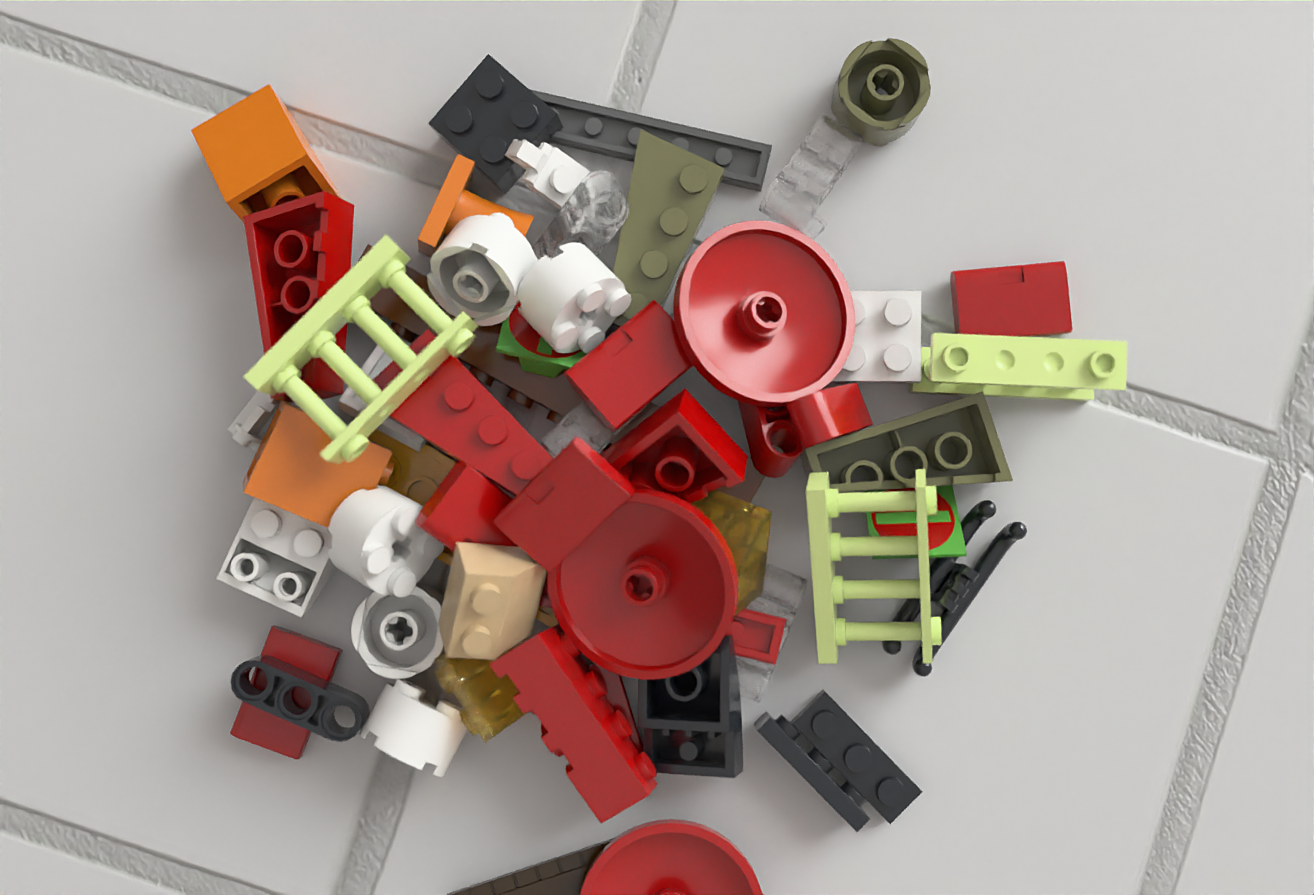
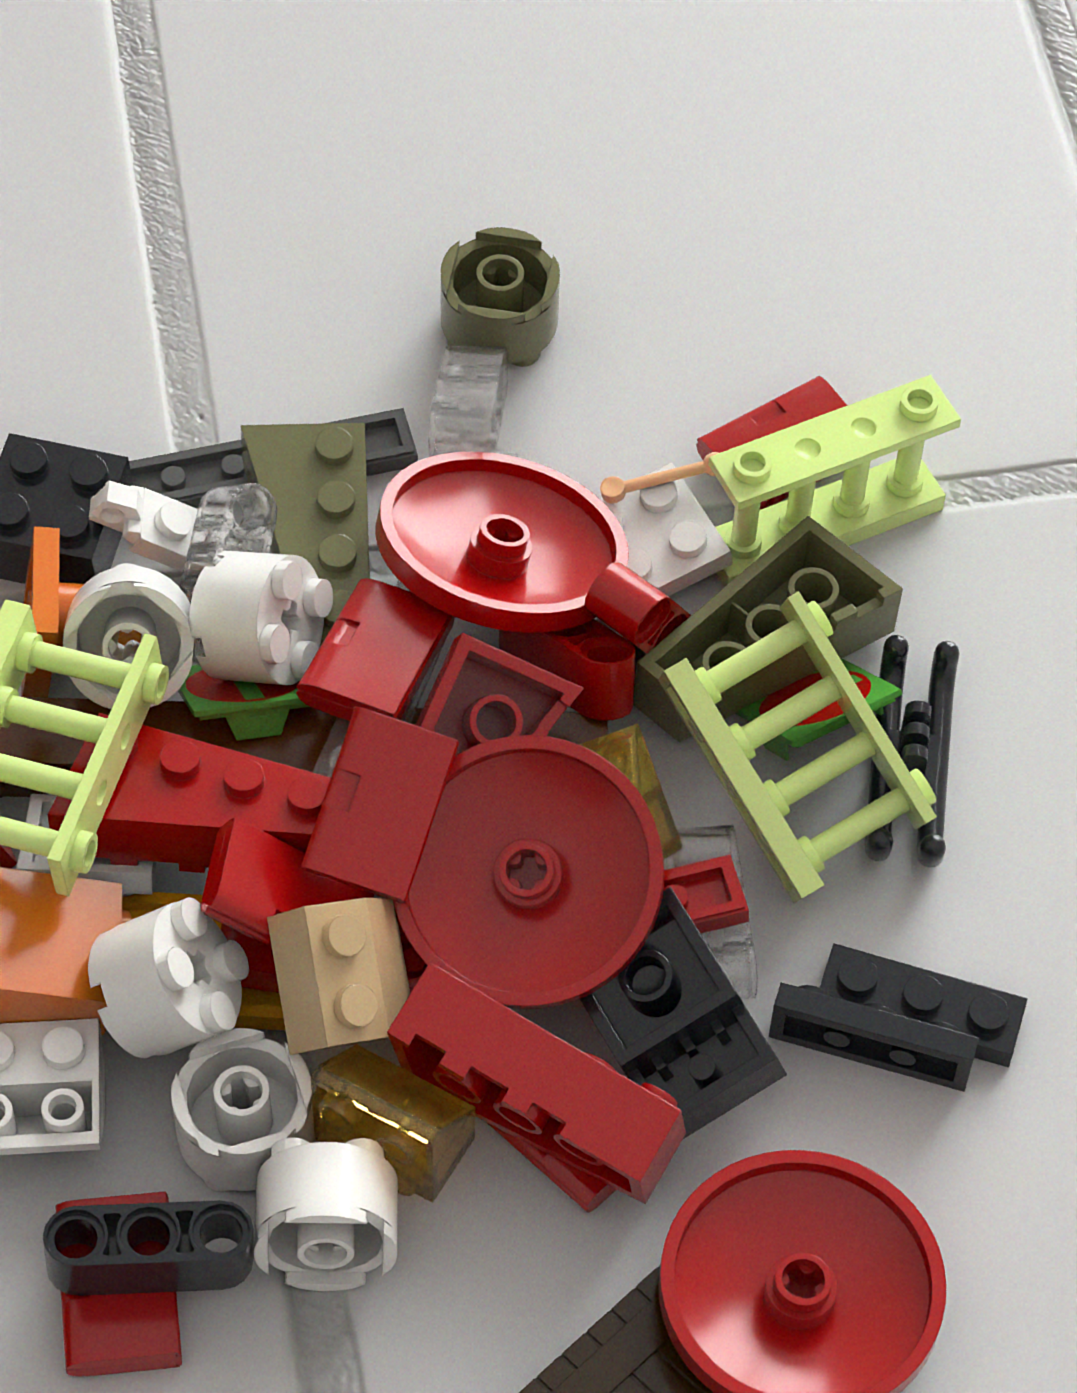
camera: 30 degrees left, 30 degrees down
(868, 296) = (614, 489): none -> light nougat hinge

